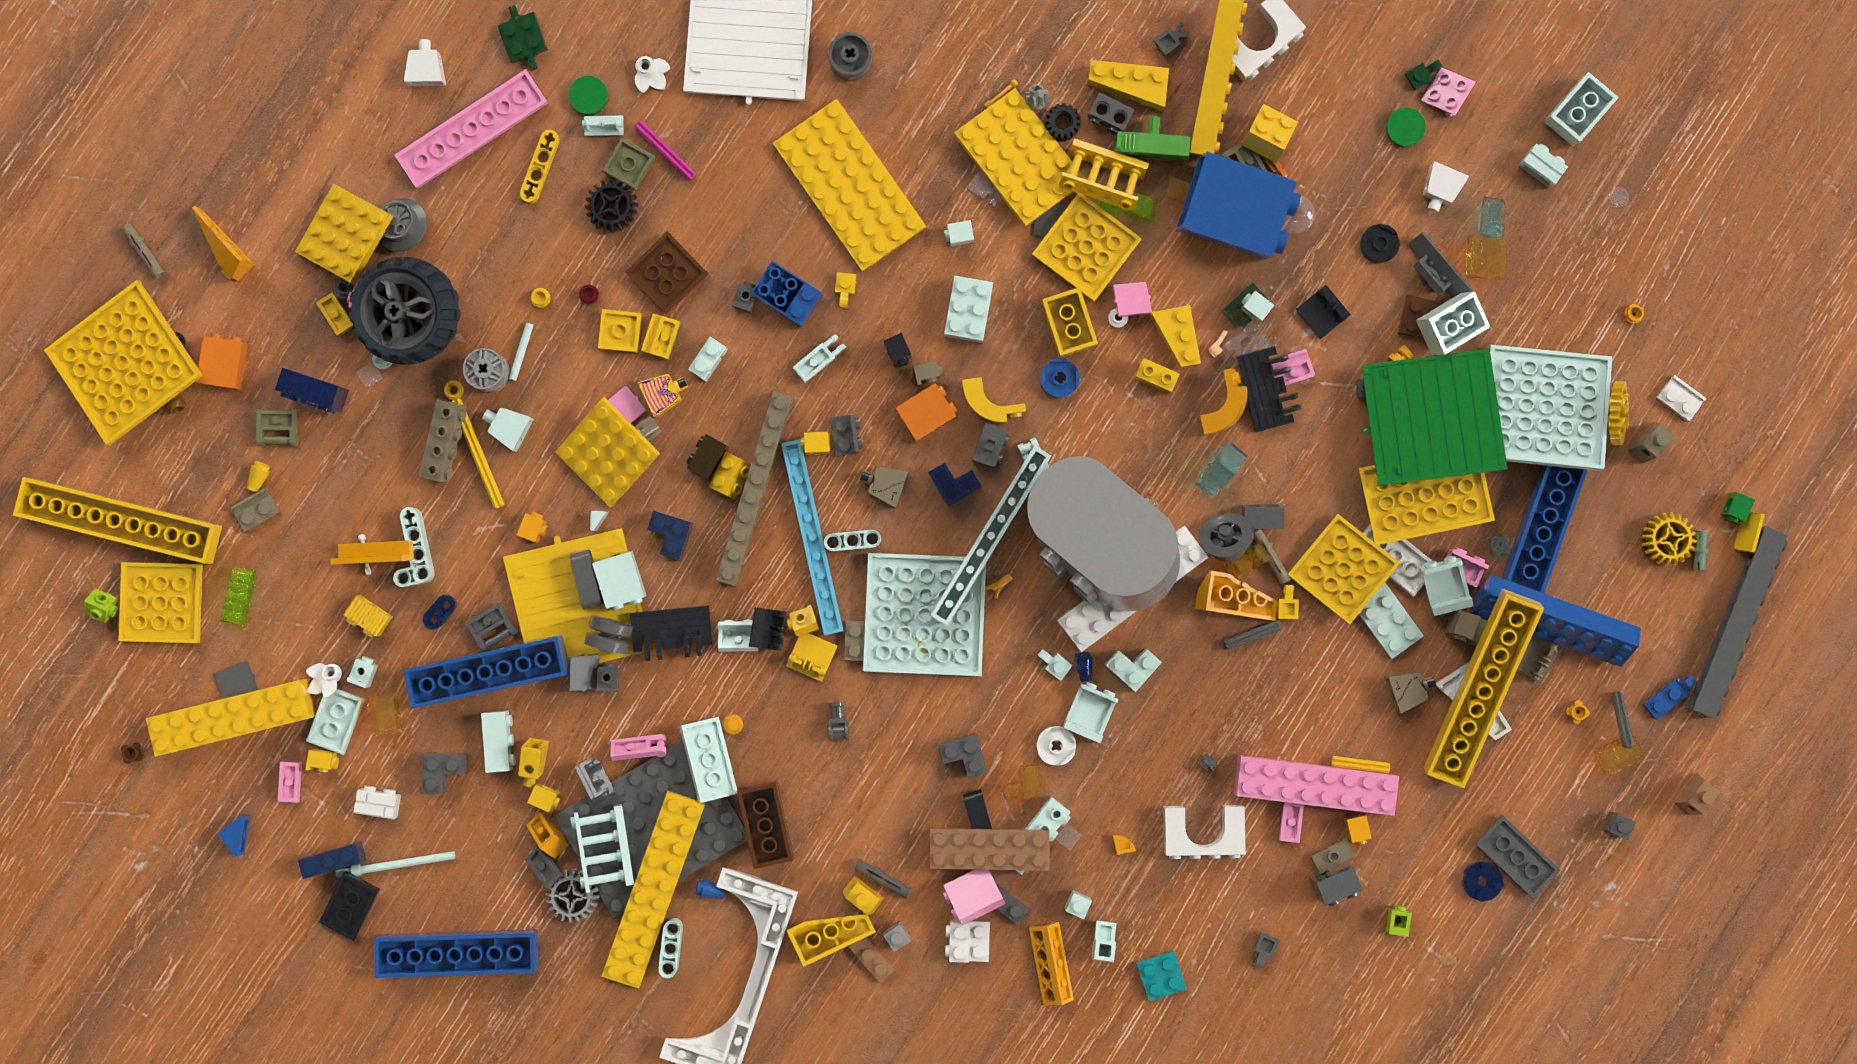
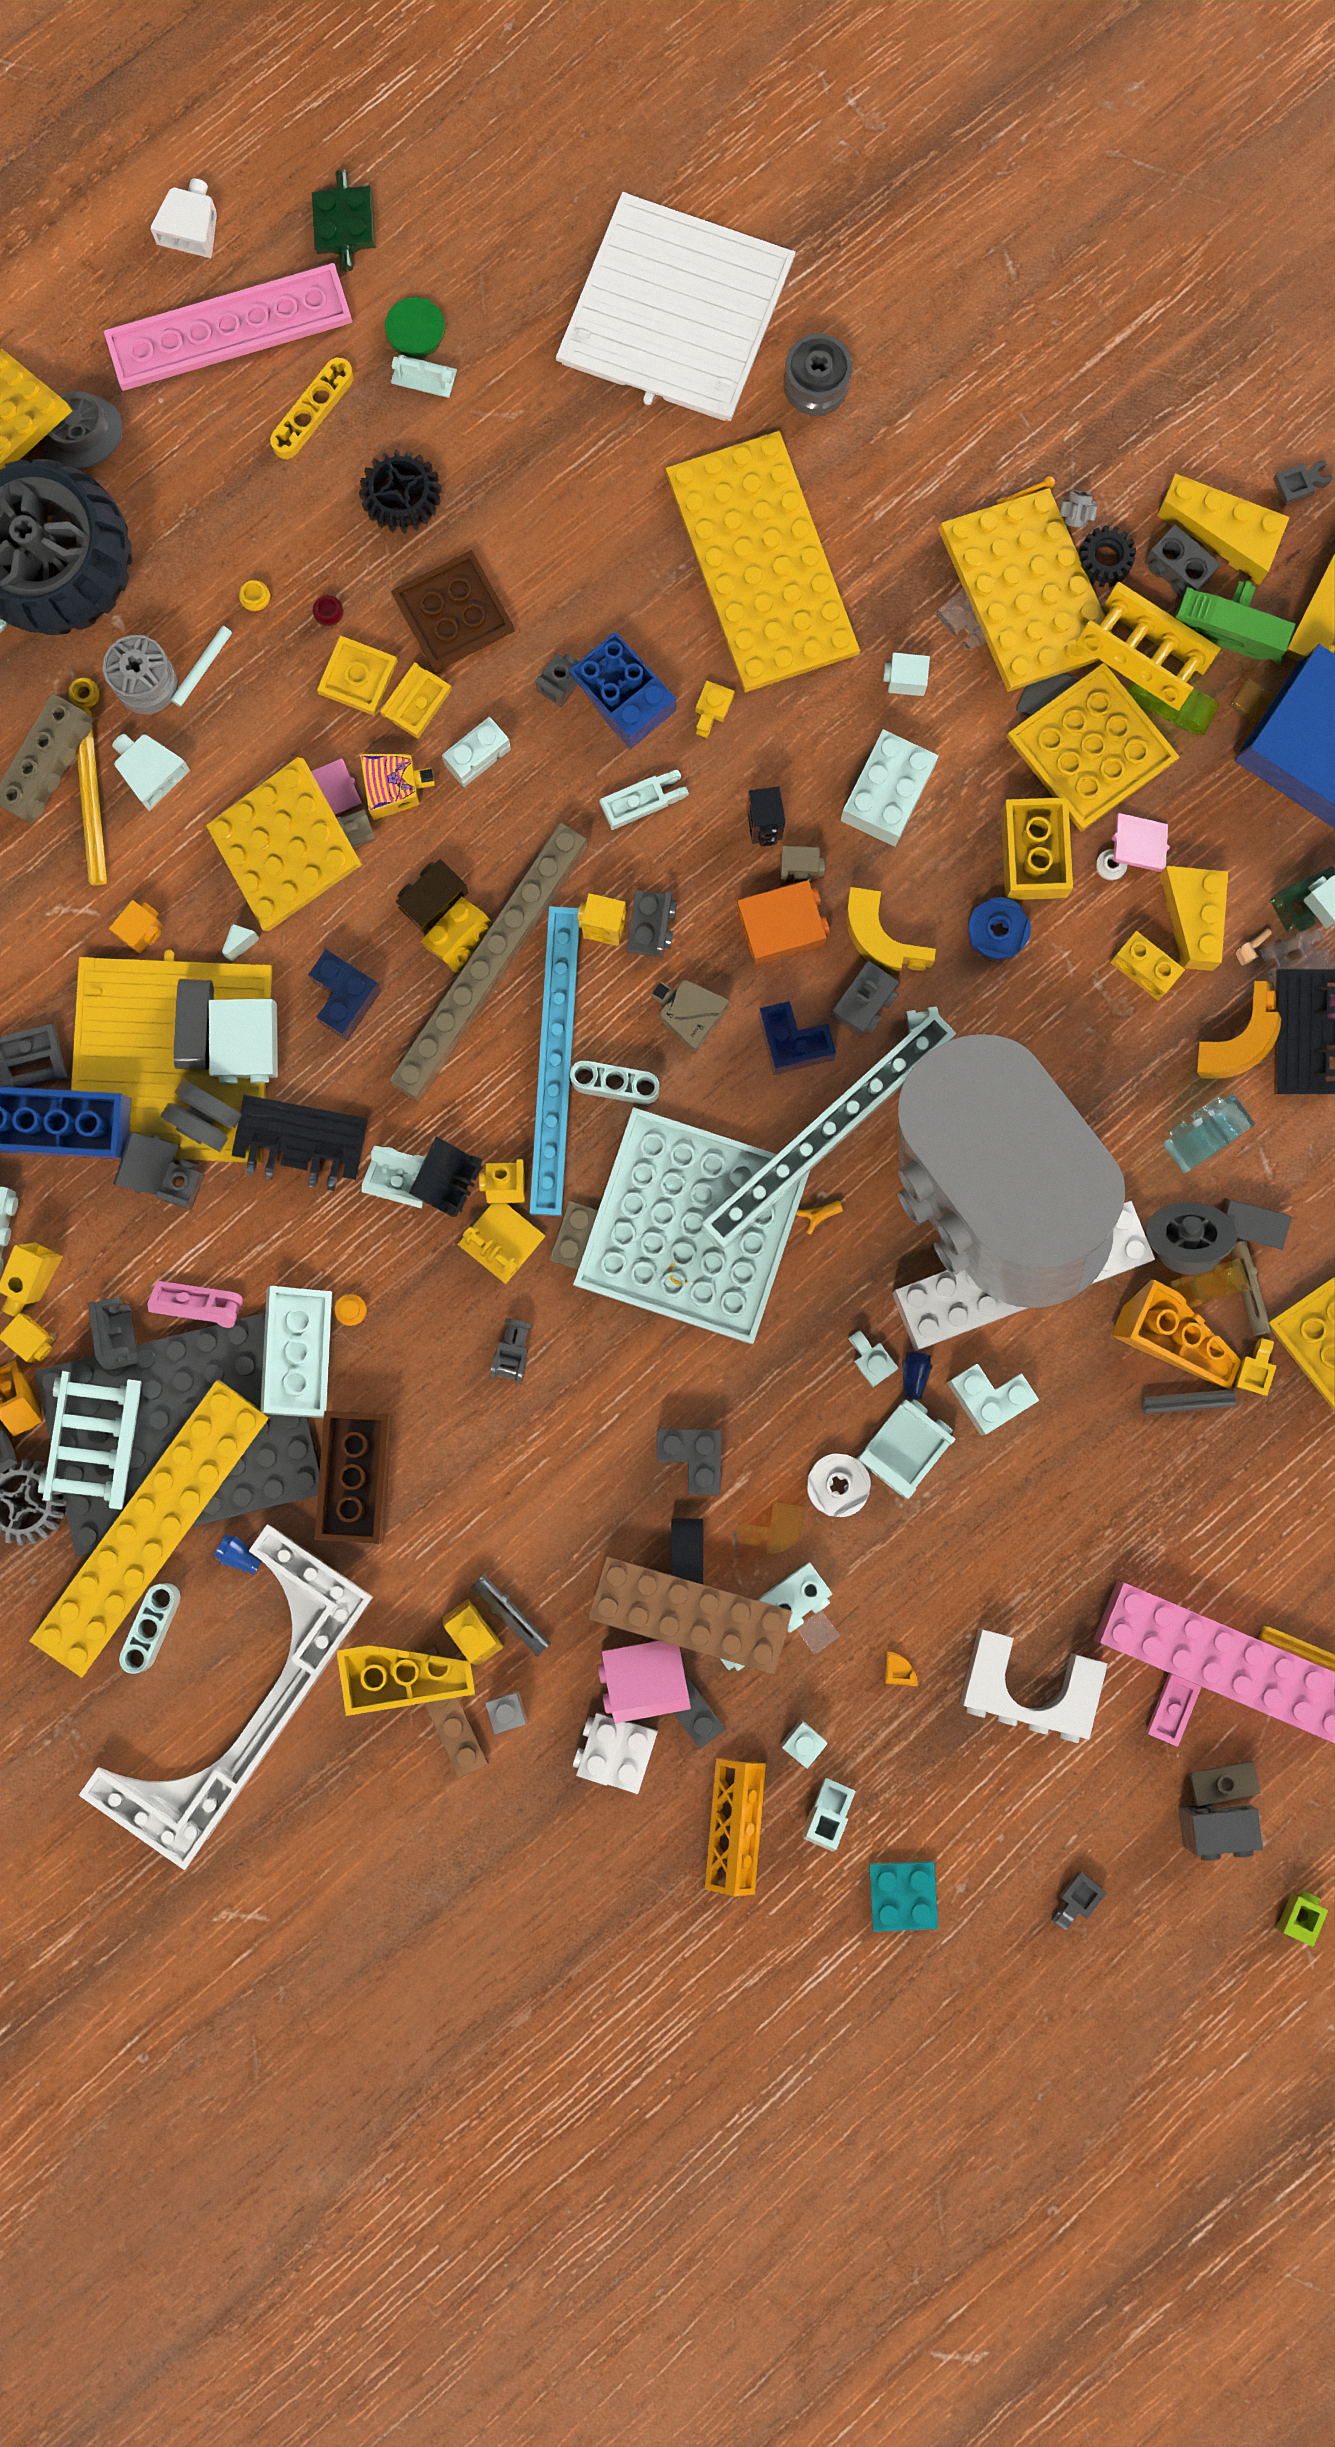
camera: 15 degrees right, 5 degrees down
(628, 163) = (444, 439): olive plate -> none
(653, 75) = (518, 325): white plate -> none
(665, 150) = (503, 436): dark pink axle -> none
(1208, 763) = (1067, 1579): dark grey plate -> none
(1357, 829) = (1275, 1751): light orange brick -> none

